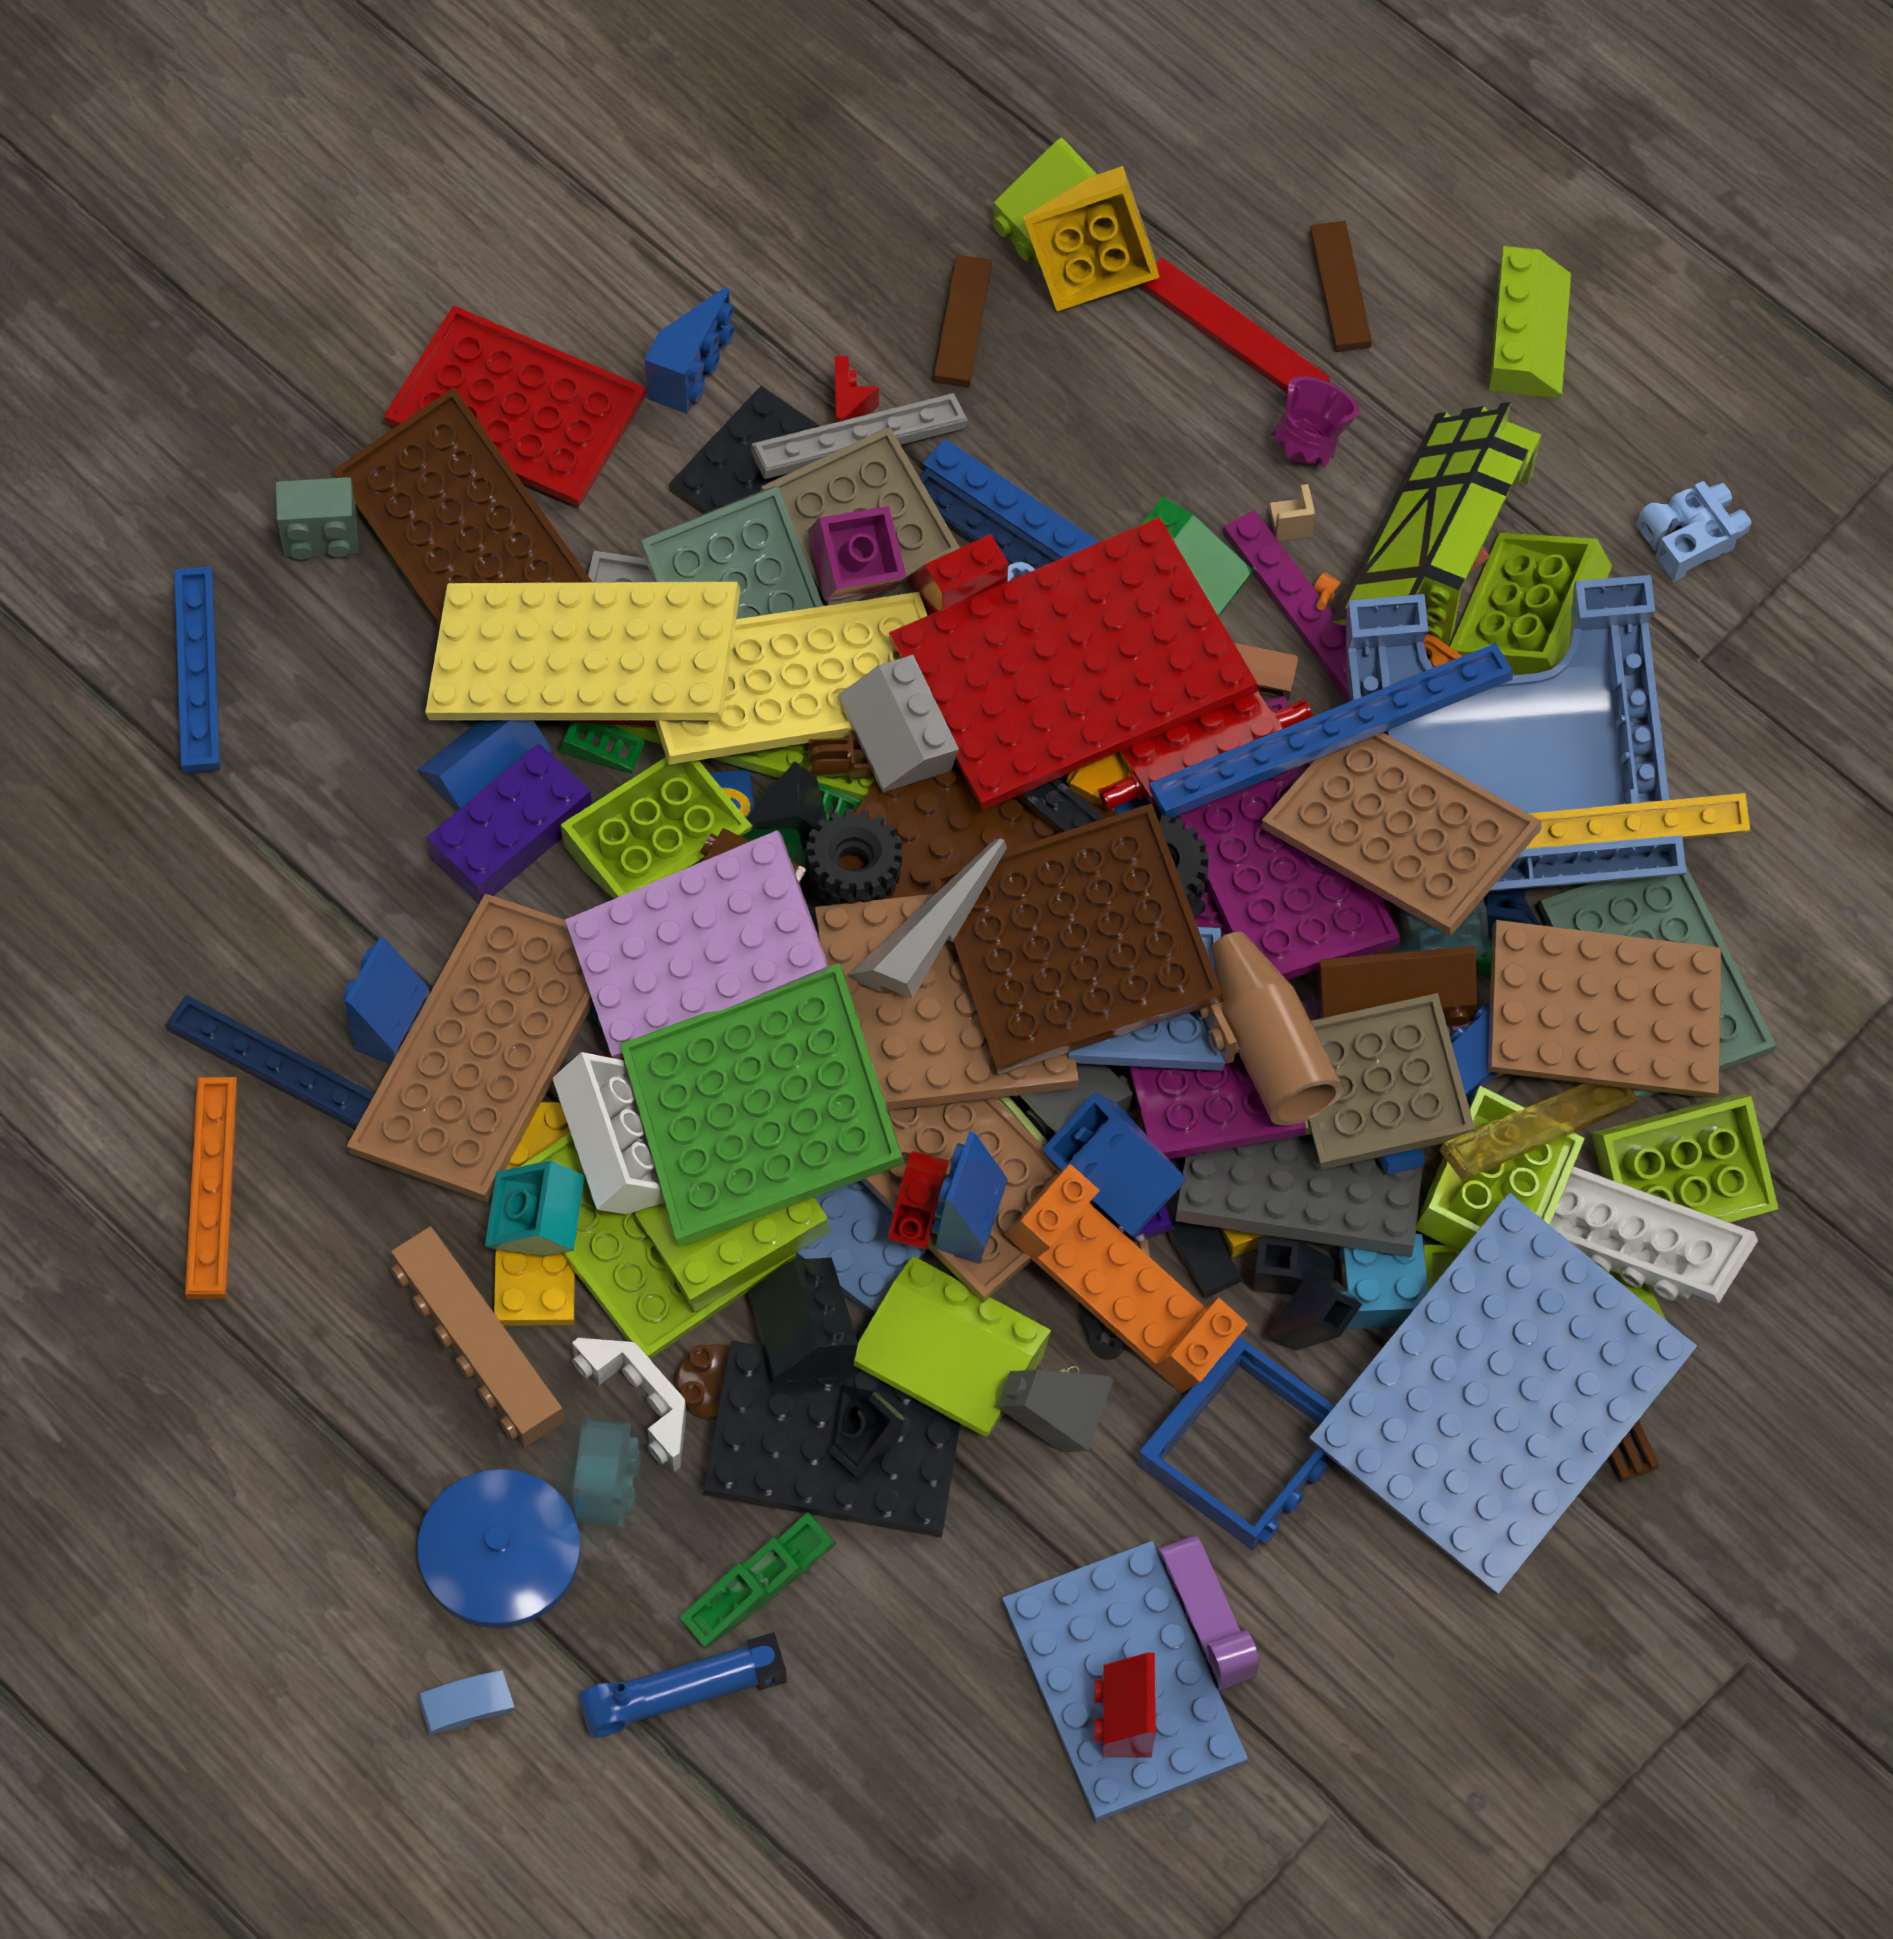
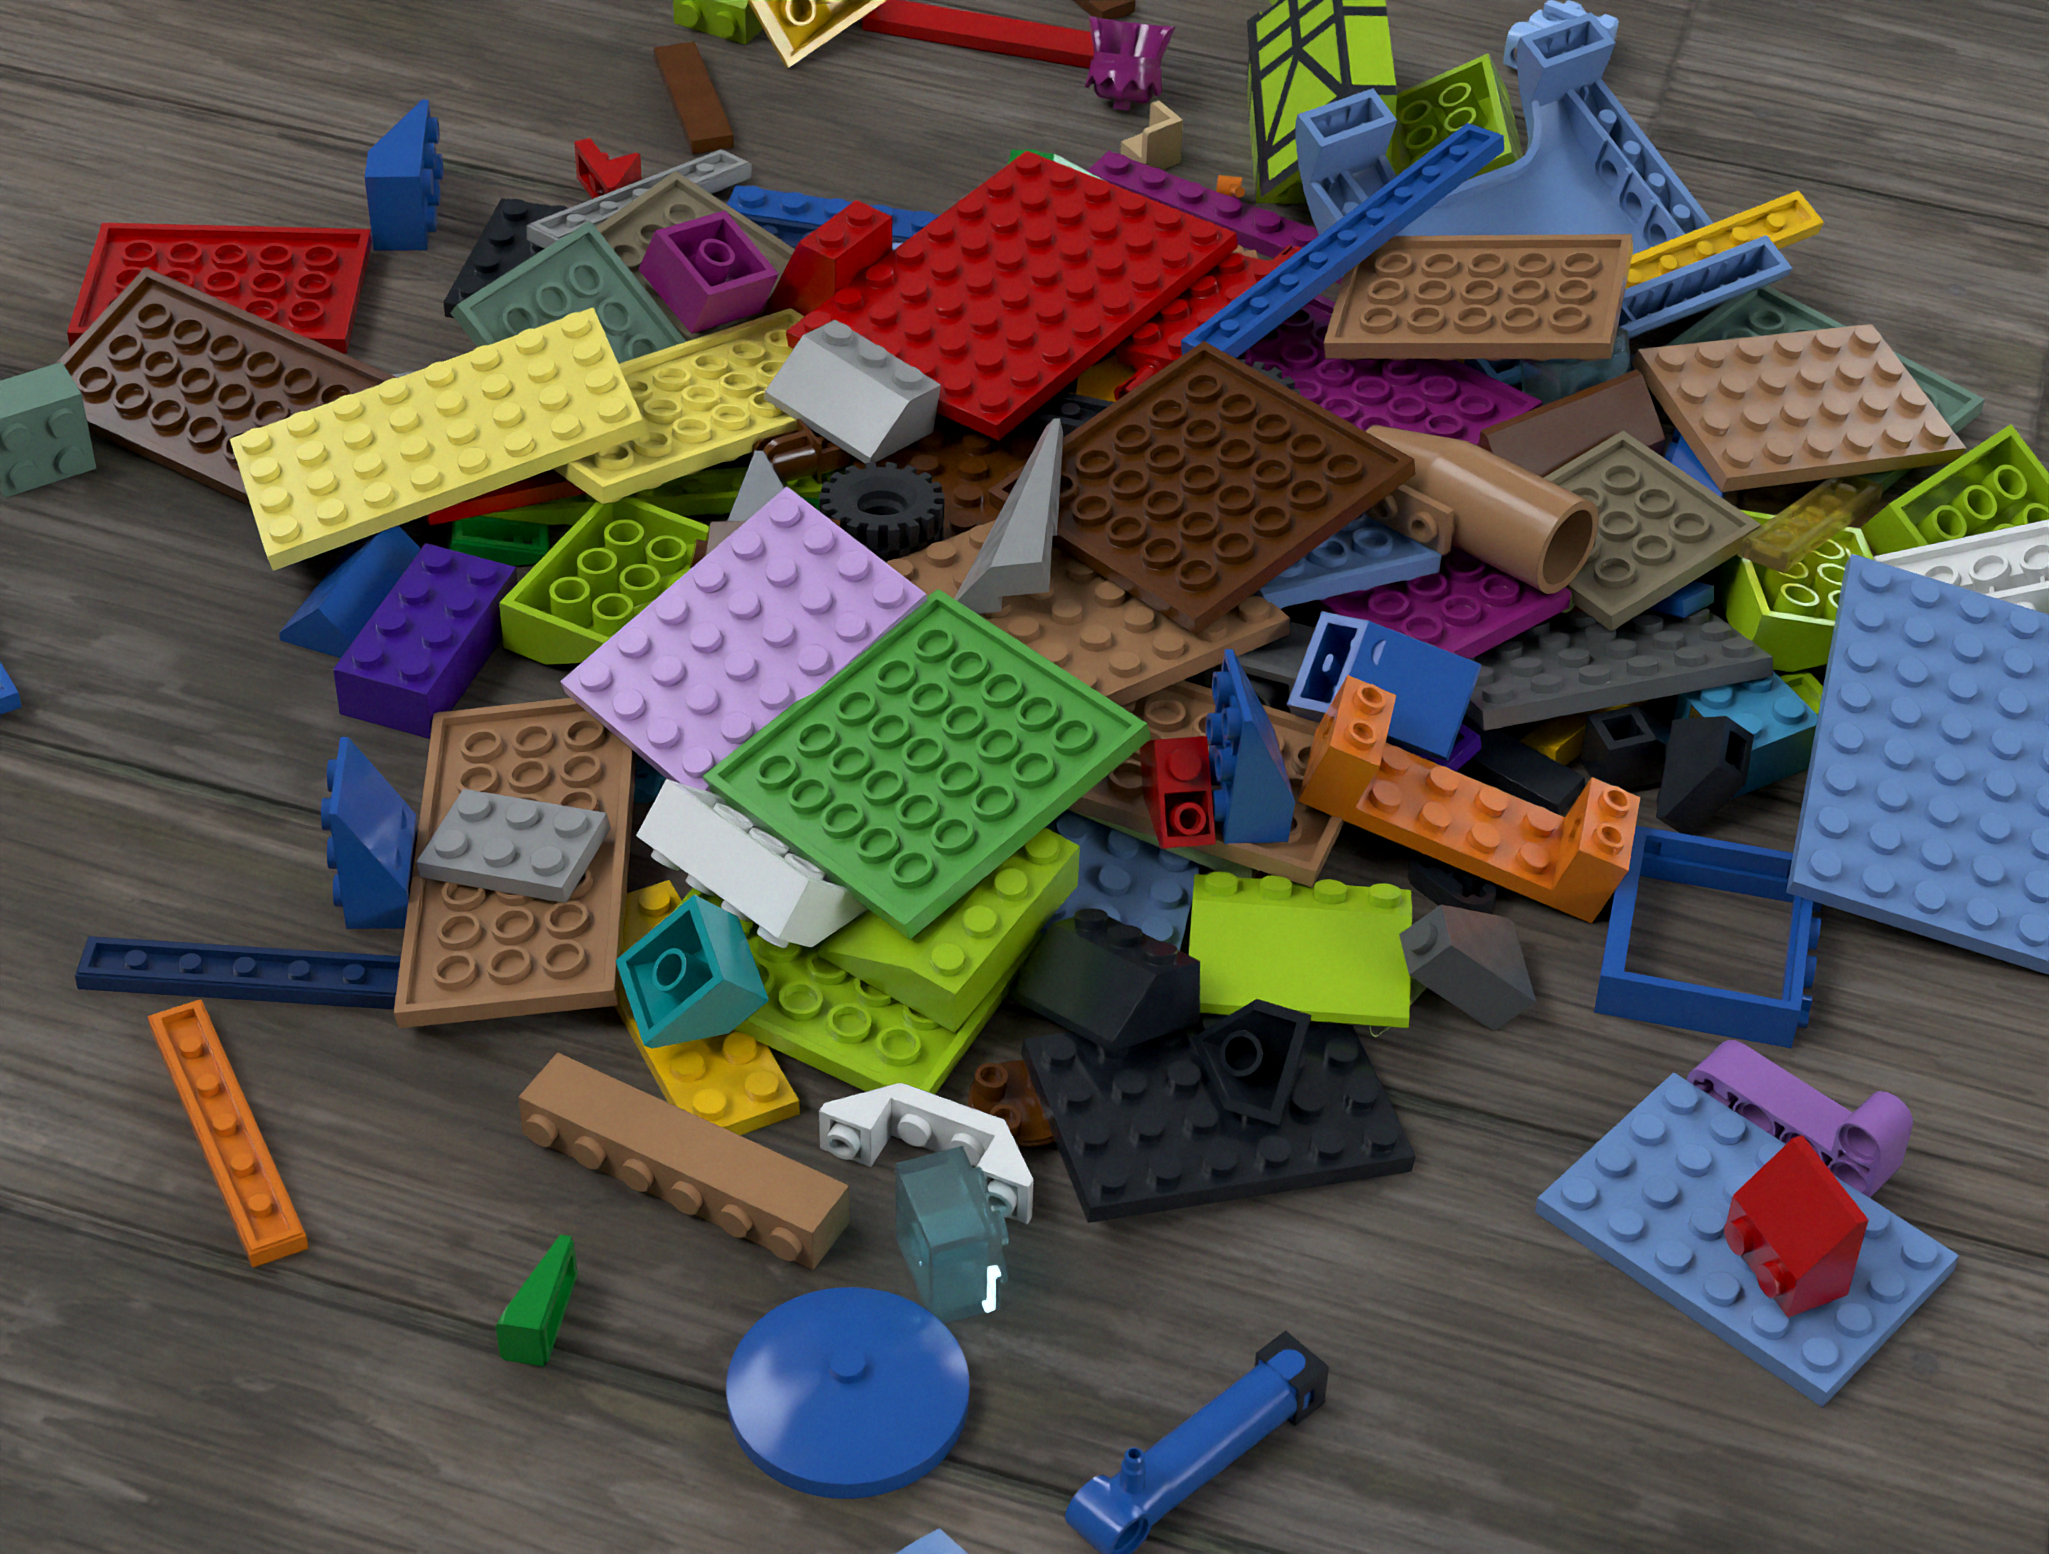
camera: 25 degrees left, 20 degrees down
(336, 1413) = (535, 1314): none -> green slope
(478, 1043) = (514, 845): none -> light grey plate
(758, 1580) = (1216, 1295): green slope -> none

